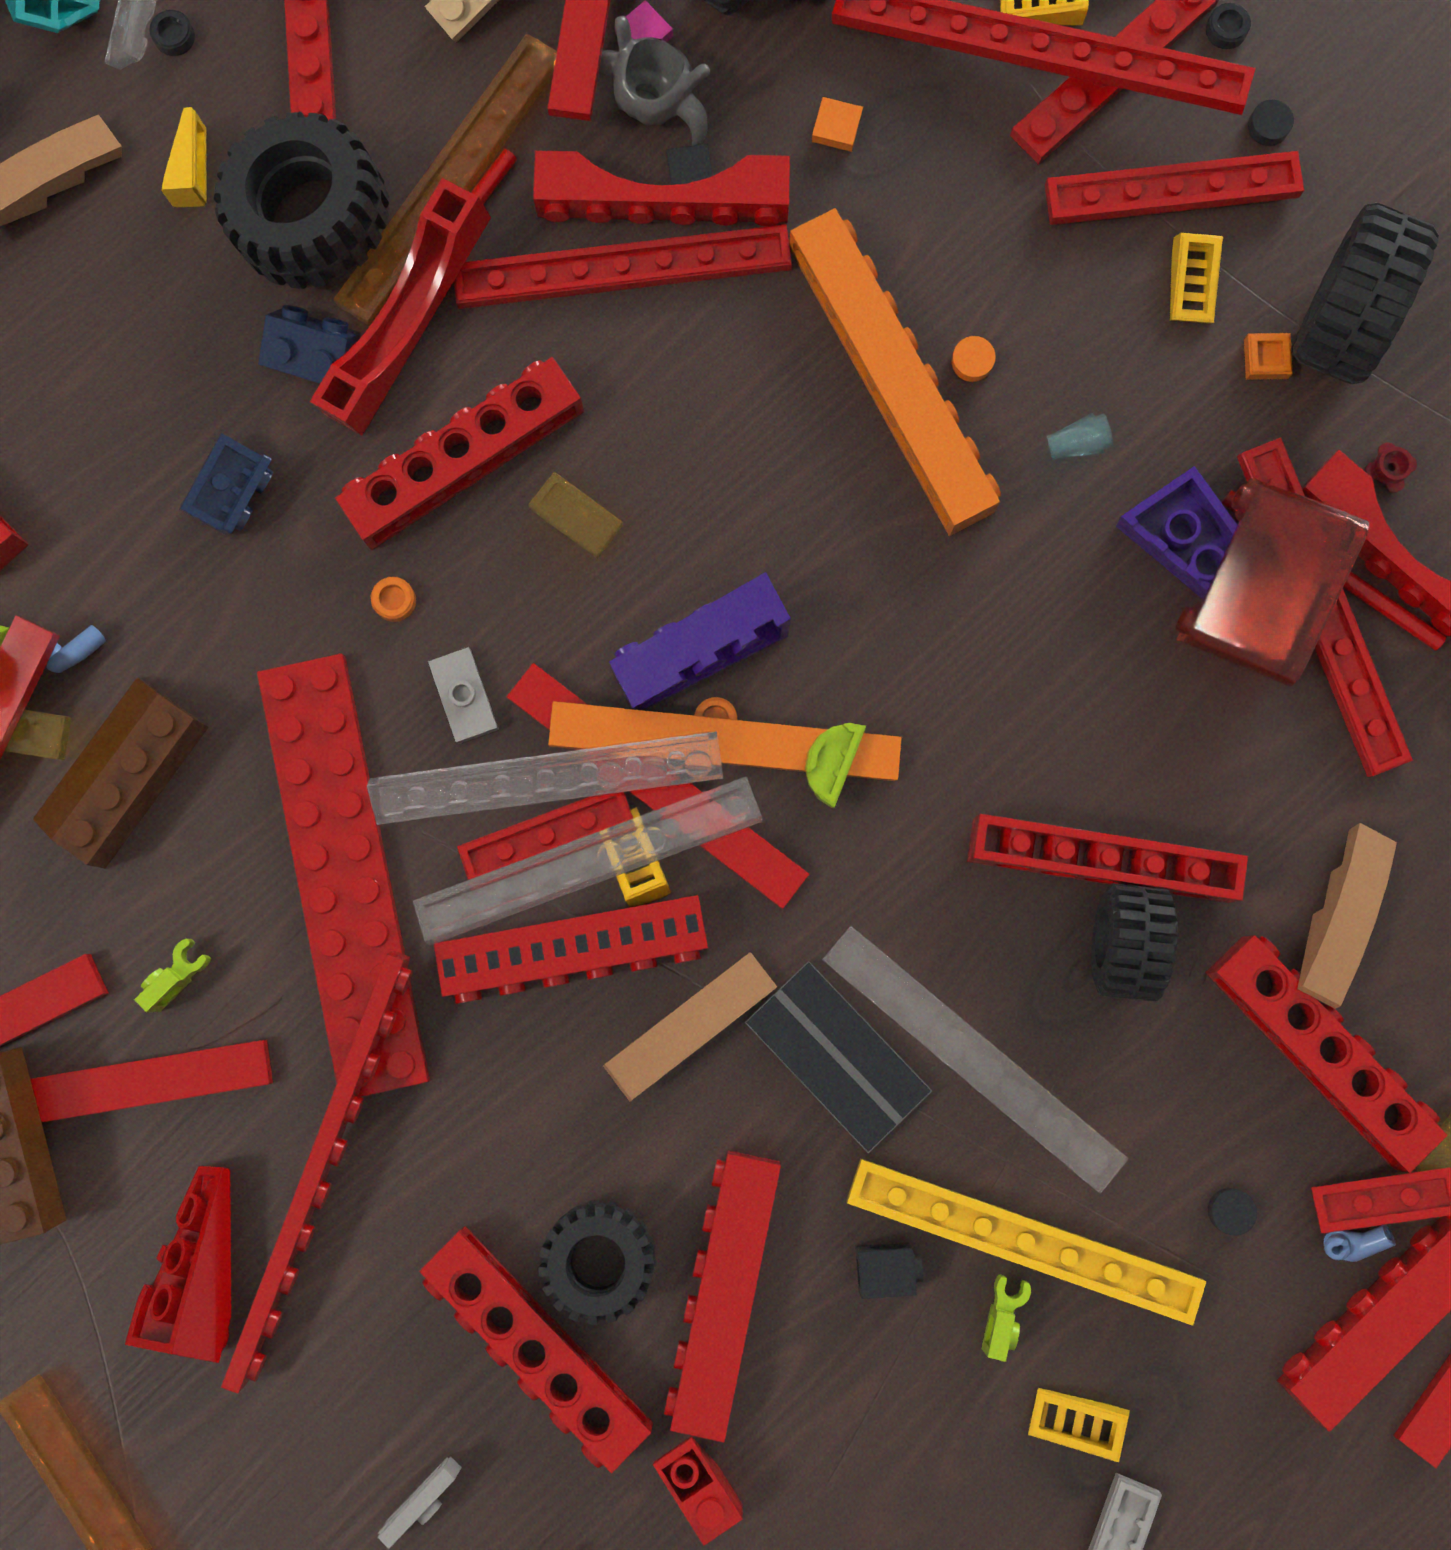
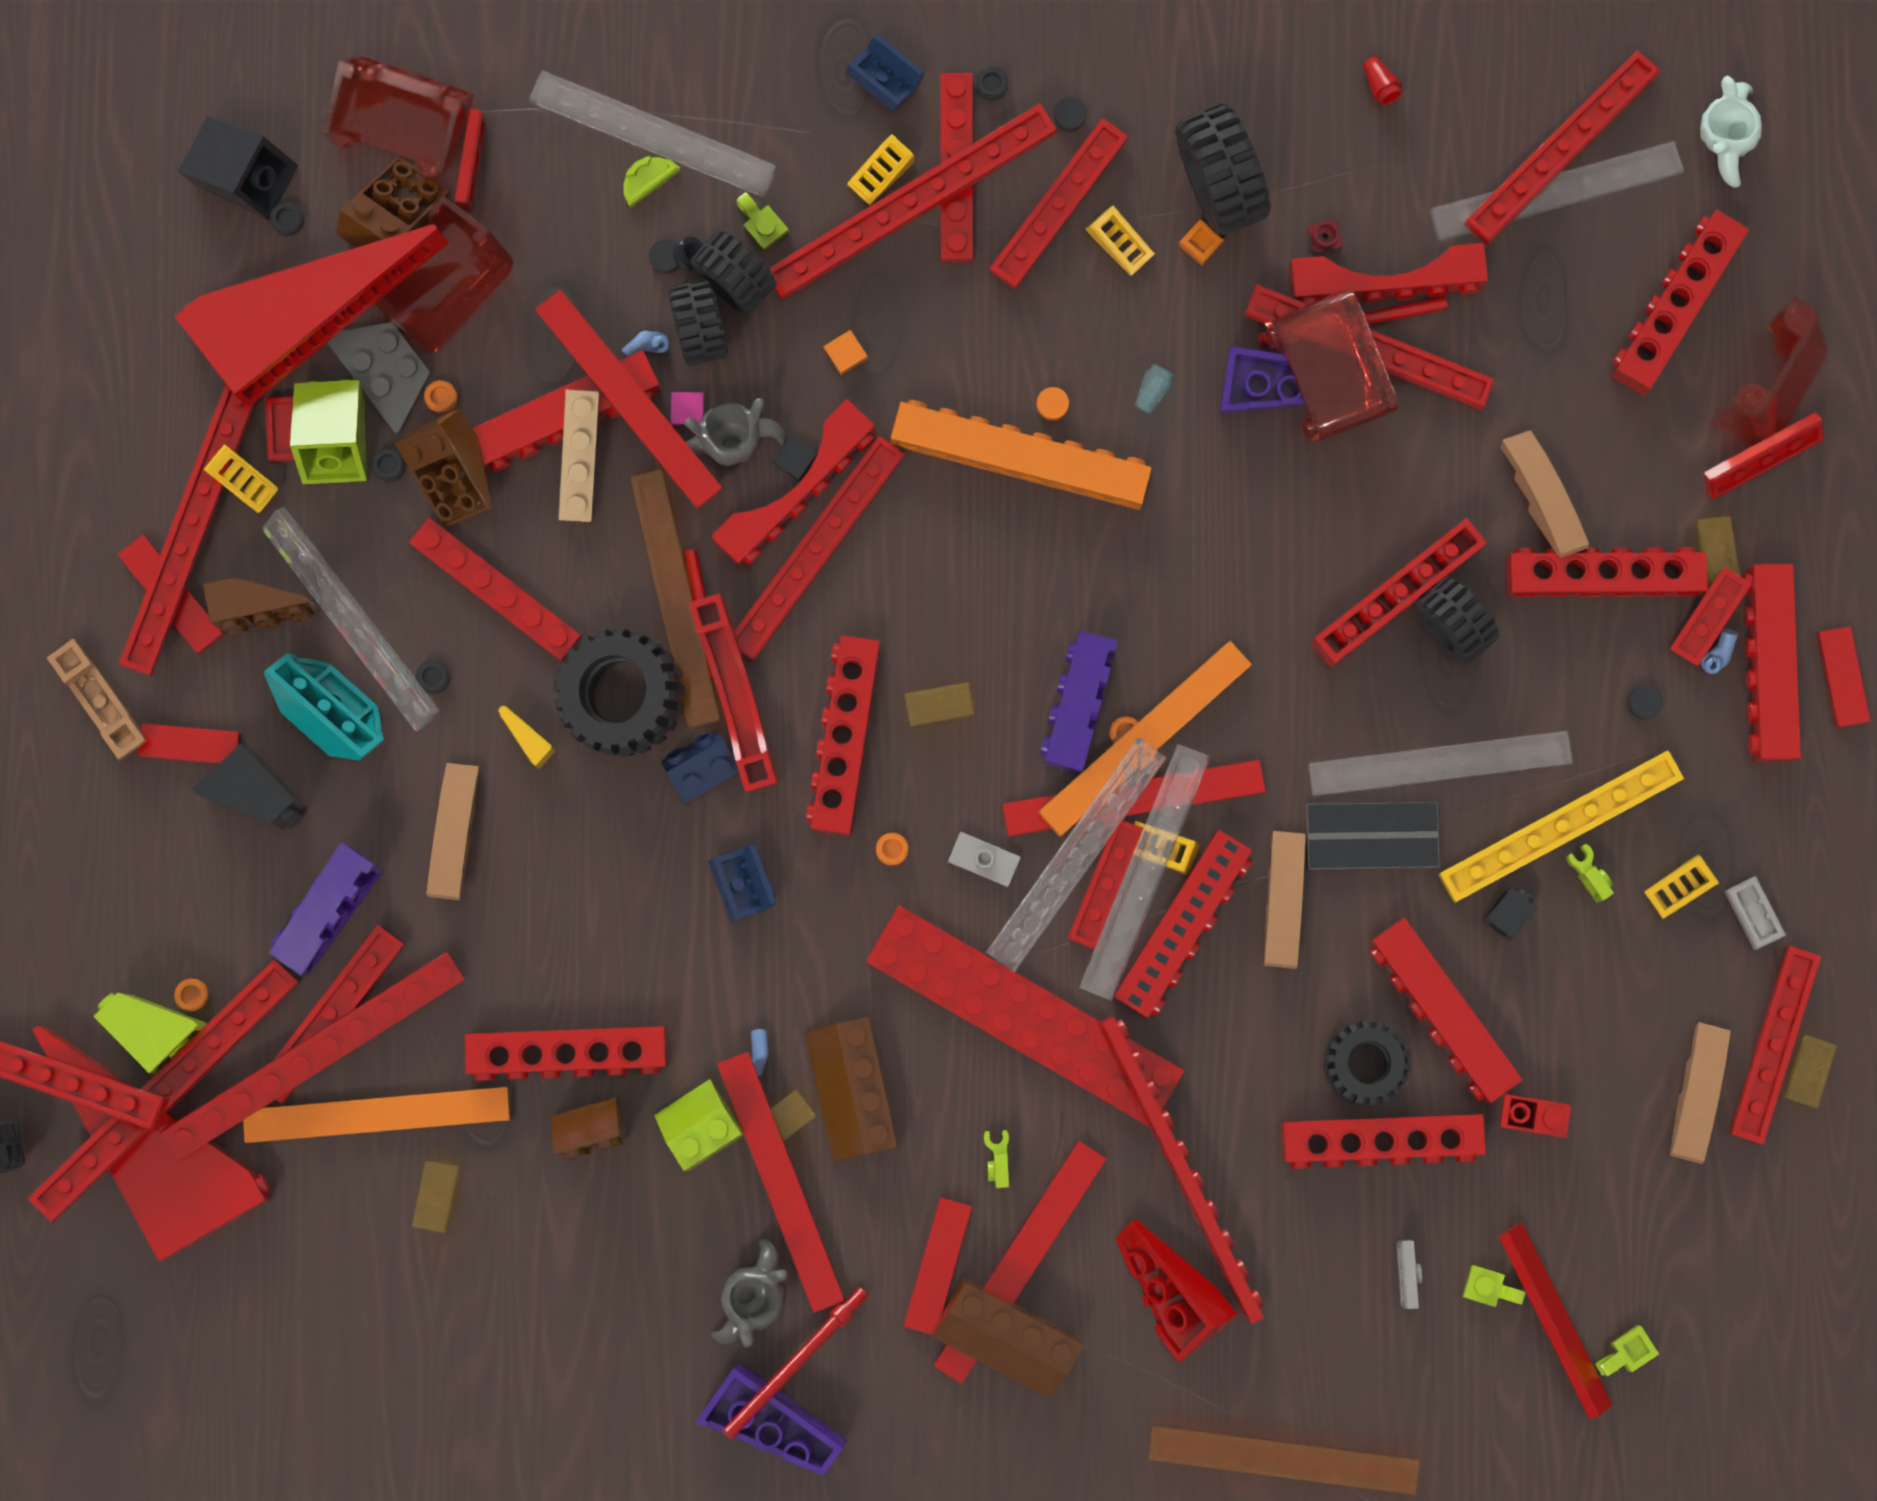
camera: 50 degrees left, 0 degrees up
(831, 759) = (1209, 691): lime tile -> none

